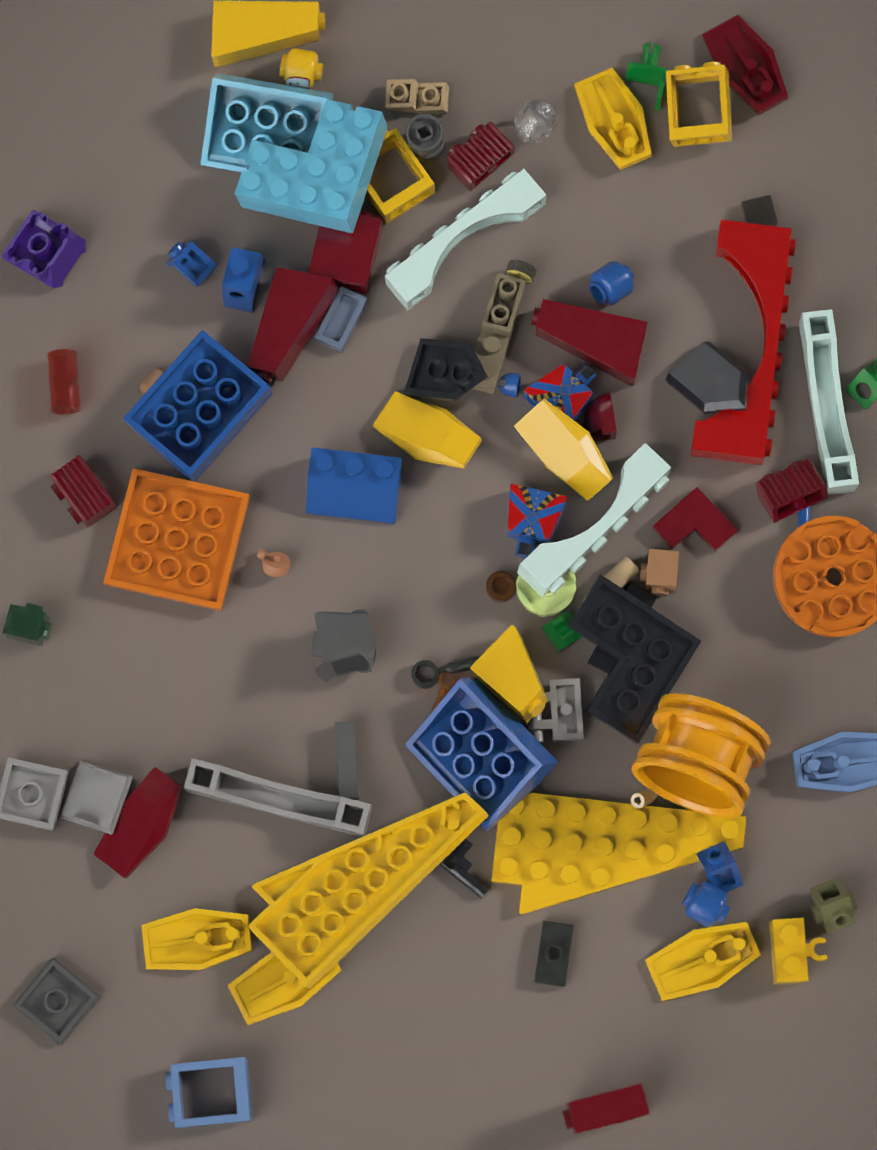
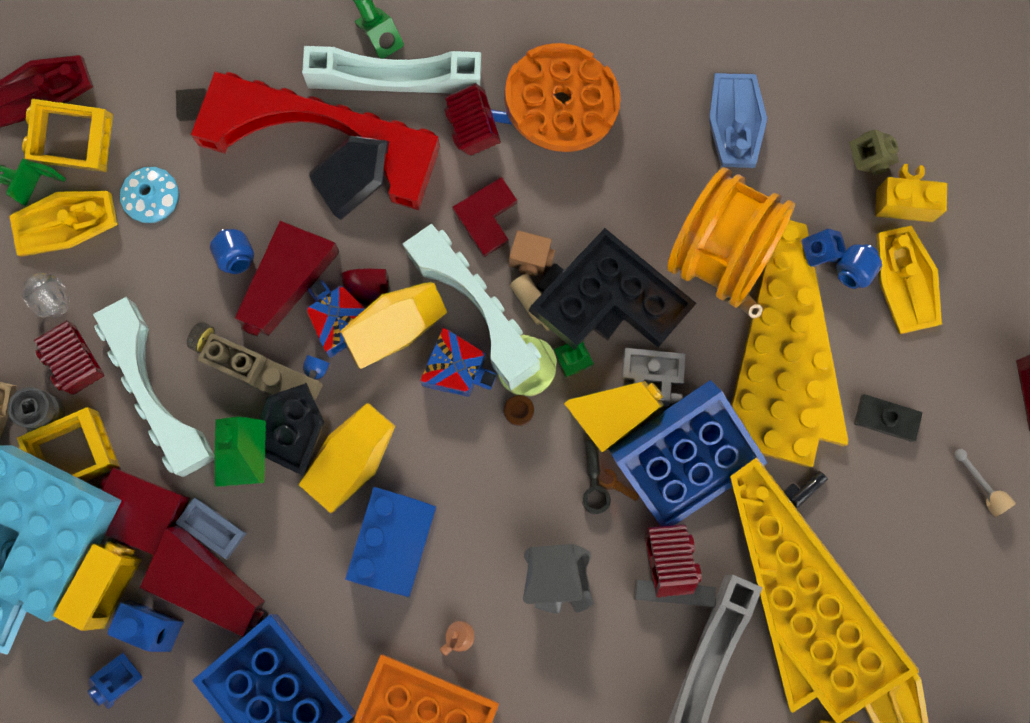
camera: 90 degrees left, 0 degrees up
(272, 230) = (98, 586): none -> yellow window
(375, 749) = (672, 560): none -> dark red brick
(415, 329) = (239, 451): none -> green slope
(487, 1071) = (997, 501): none -> hinge
(655, 205) = (155, 205): none -> medium azure dish

